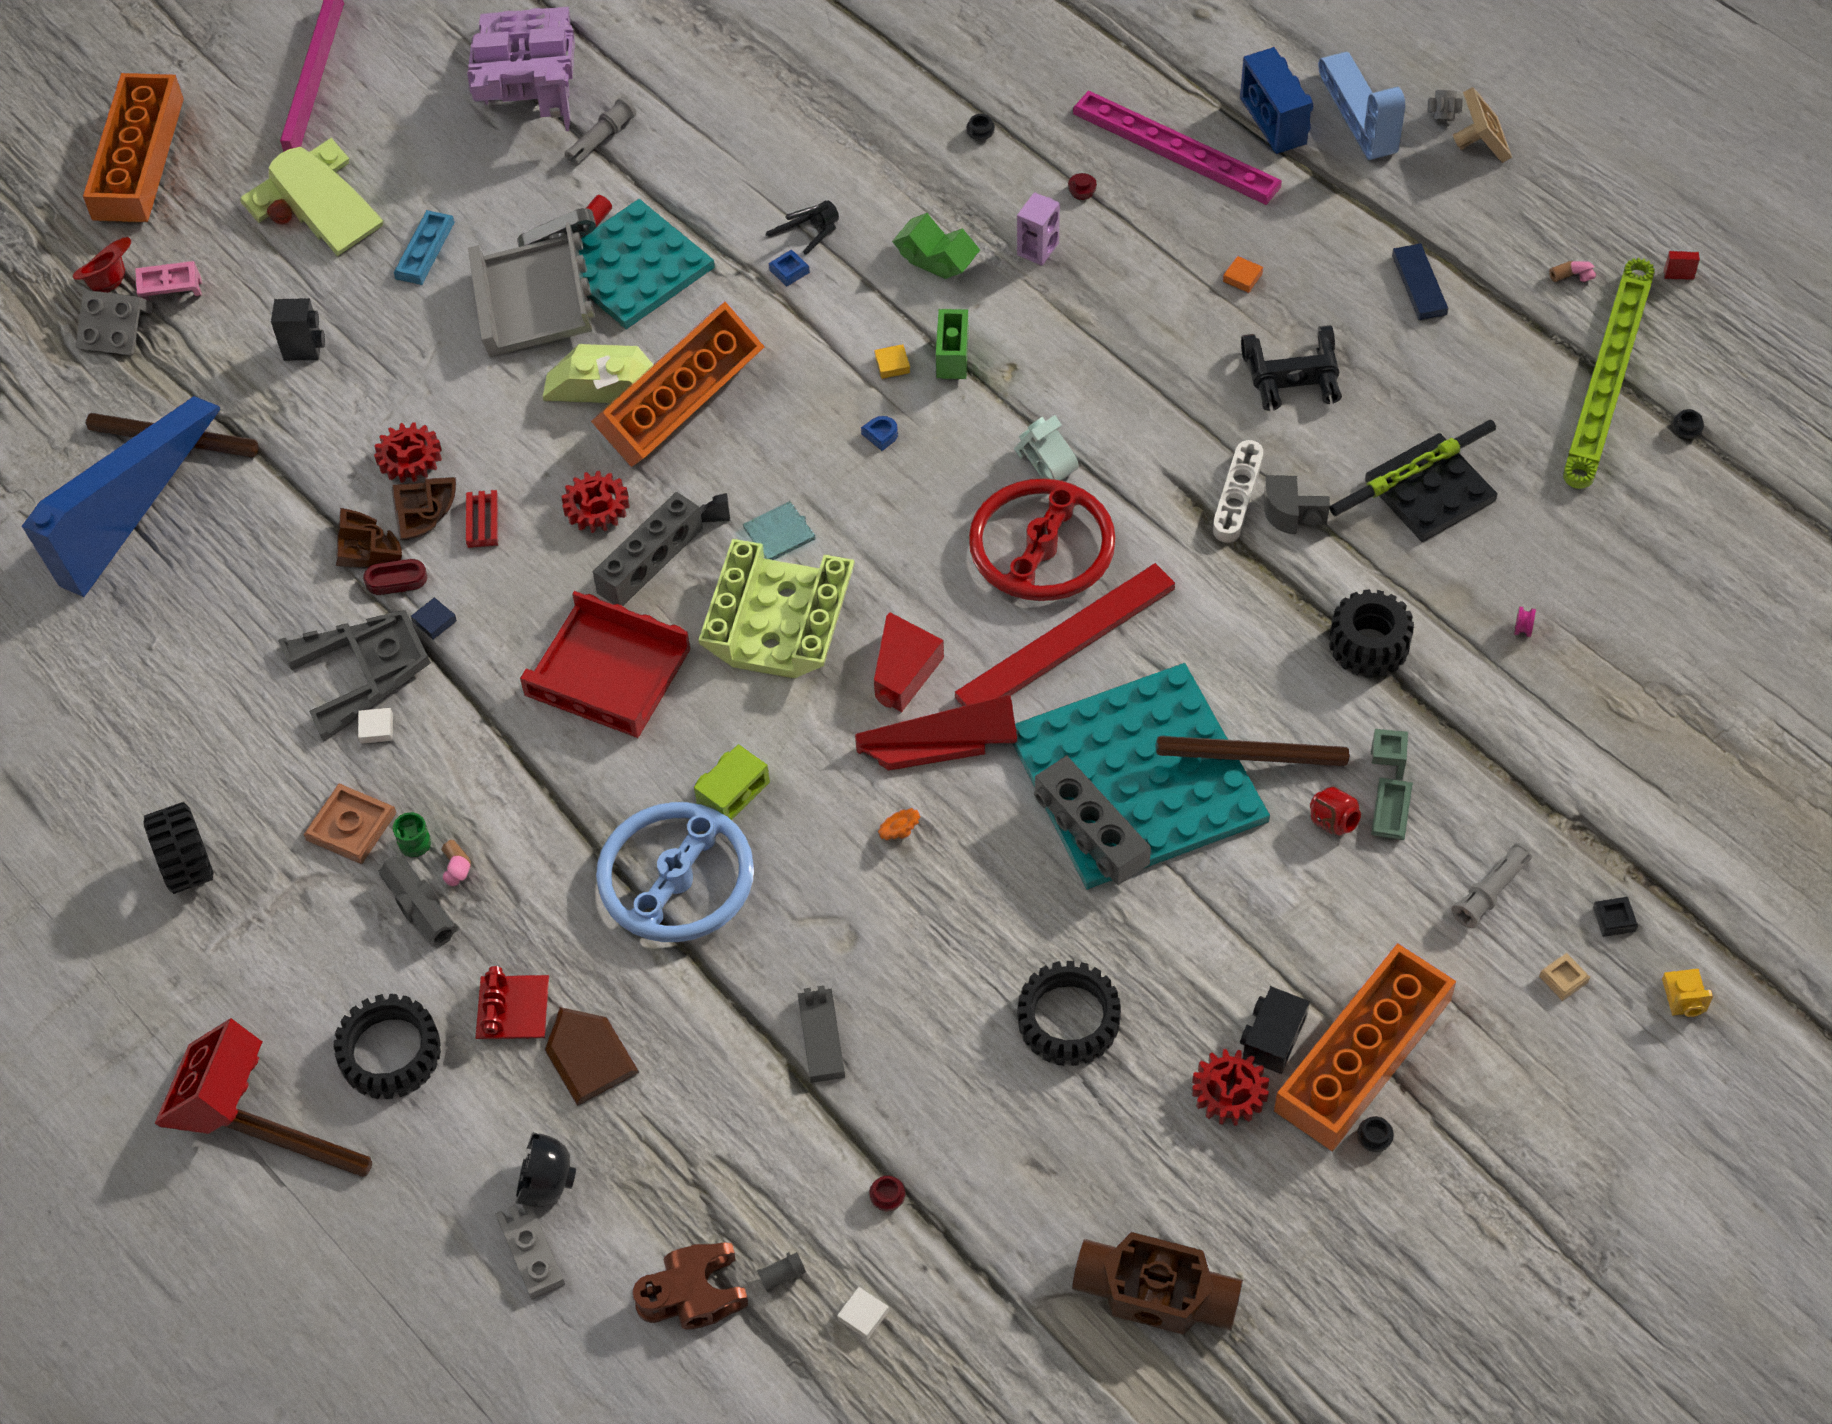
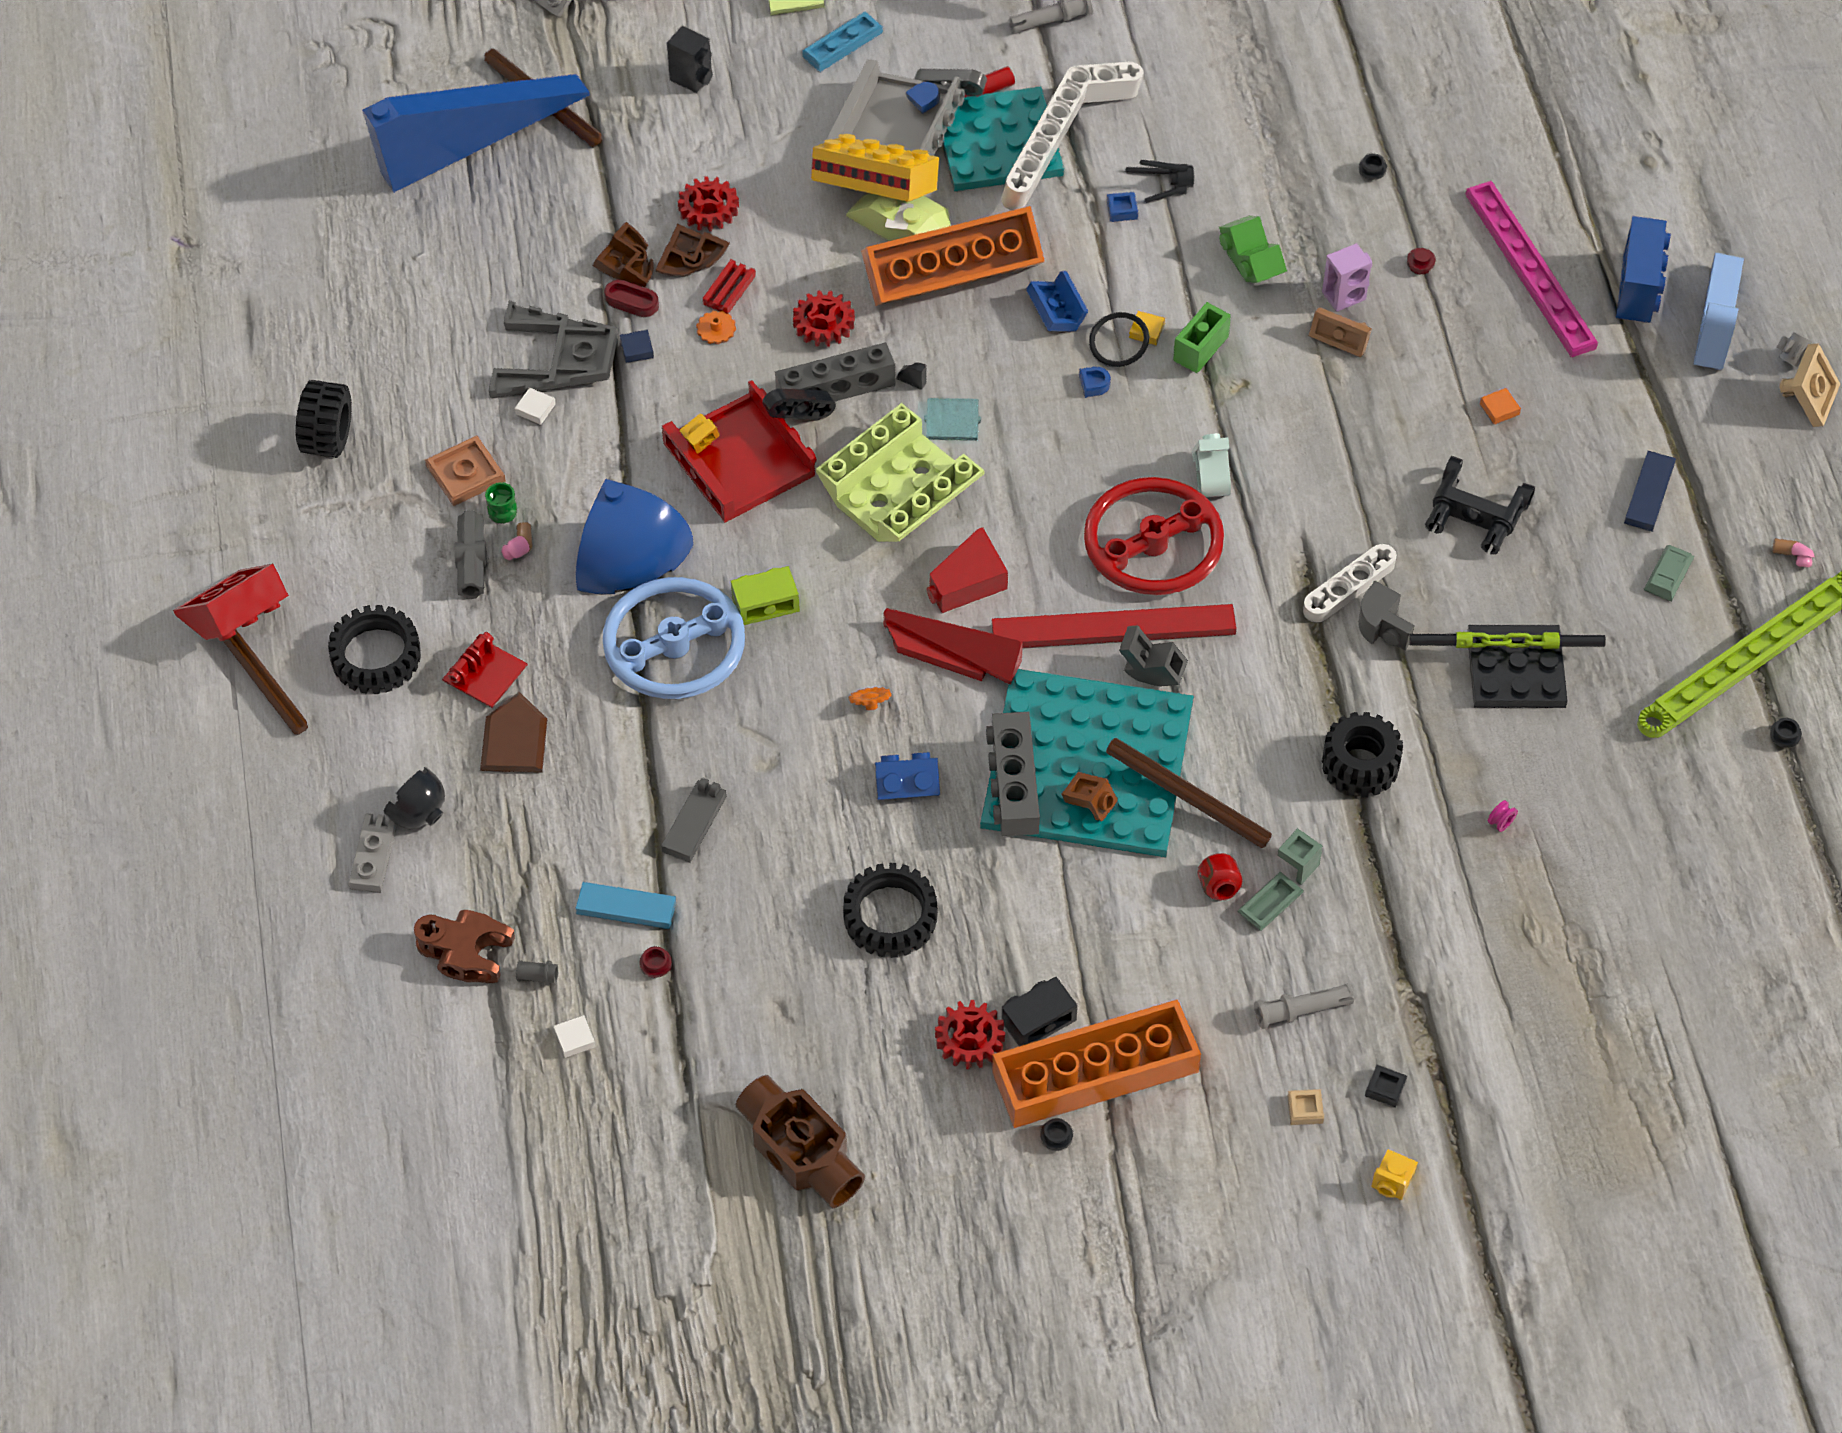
camera: 30 degrees right, 0 degrees up
(496, 562) = (716, 327): none -> orange piece
(544, 256) = (924, 96): none -> blue tile
(550, 340) = (875, 167): none -> yellow brick
(560, 664) = (700, 432): none -> yellow bracket
(570, 801) = (629, 540): none -> blue brick
(635, 589) = (784, 402): none -> black beam
(678, 181) = (1077, 87): none -> white beam
(800, 378) = (1058, 303): none -> blue bracket
(817, 1154) = (626, 905): none -> dark azure tile
(876, 357) = (1138, 355): none -> black tyre
(990, 879) = (907, 777): none -> blue bracket
(1064, 279) = (1340, 332): none -> medium nougat tile
(1128, 652) = (1152, 663): none -> dark grey brick
(1171, 800) = (1091, 793): none -> dark orange bracket
(1488, 341) = (1669, 572): none -> sand green tile

